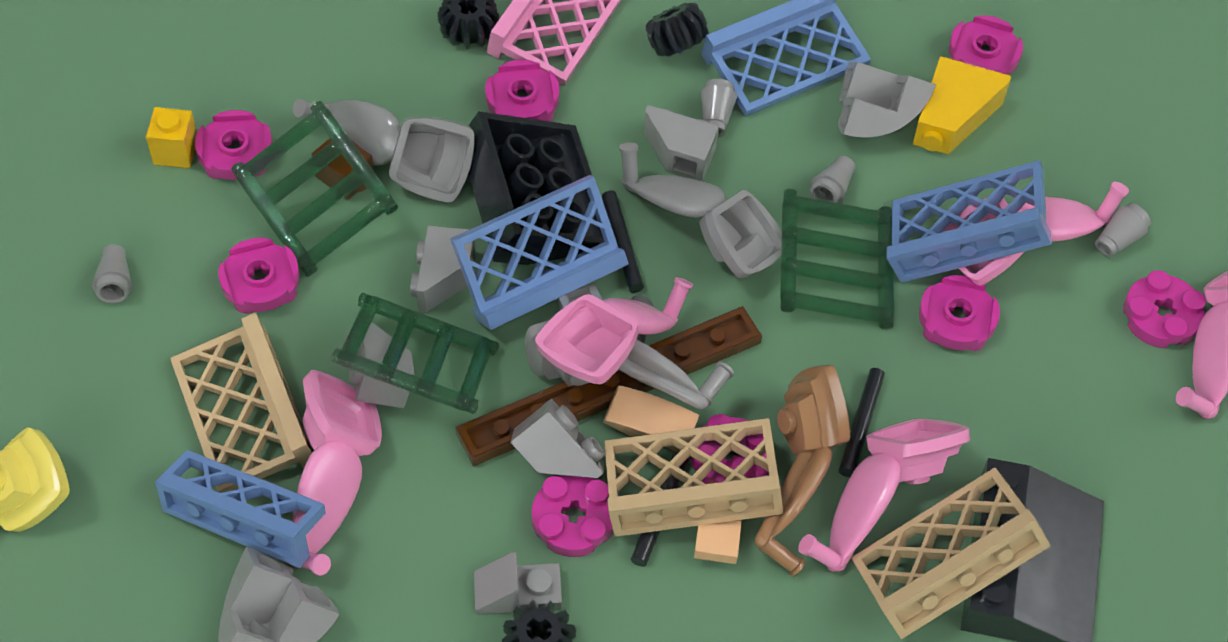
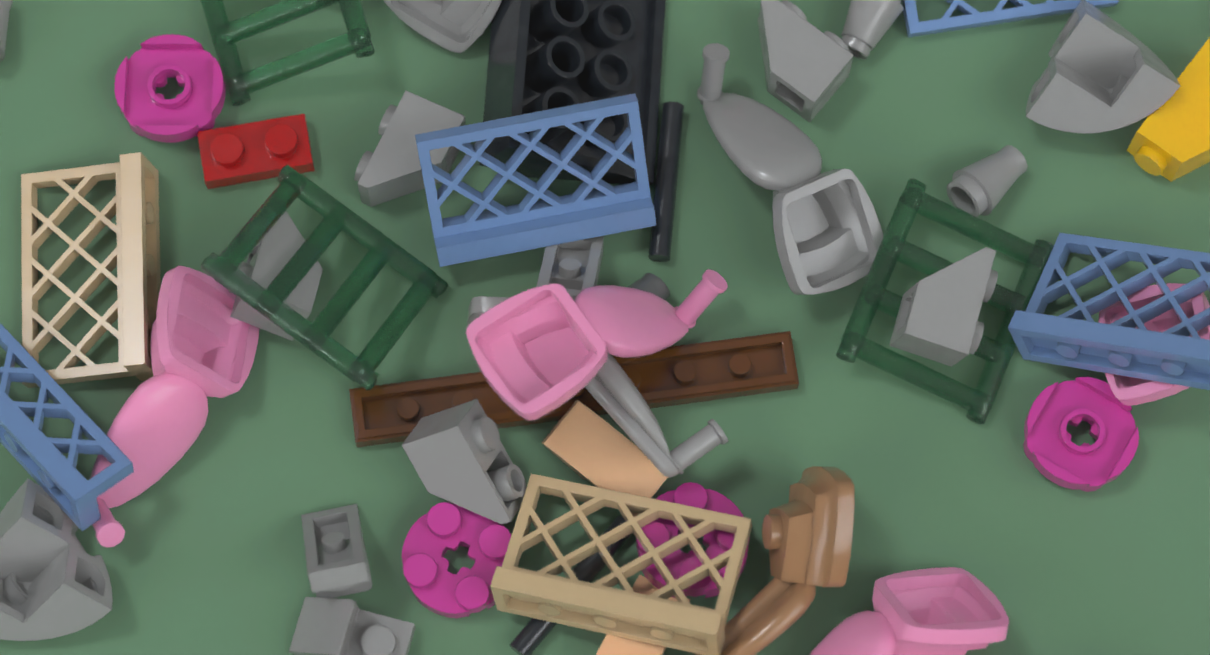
camera: 20 degrees right, 15 degrees up
(330, 298) = (254, 150): none -> red plate
(487, 533) = (336, 552): none -> light grey slope
(842, 257) = (943, 310): none -> light grey slope
(861, 422) = (886, 549): black bar -> none

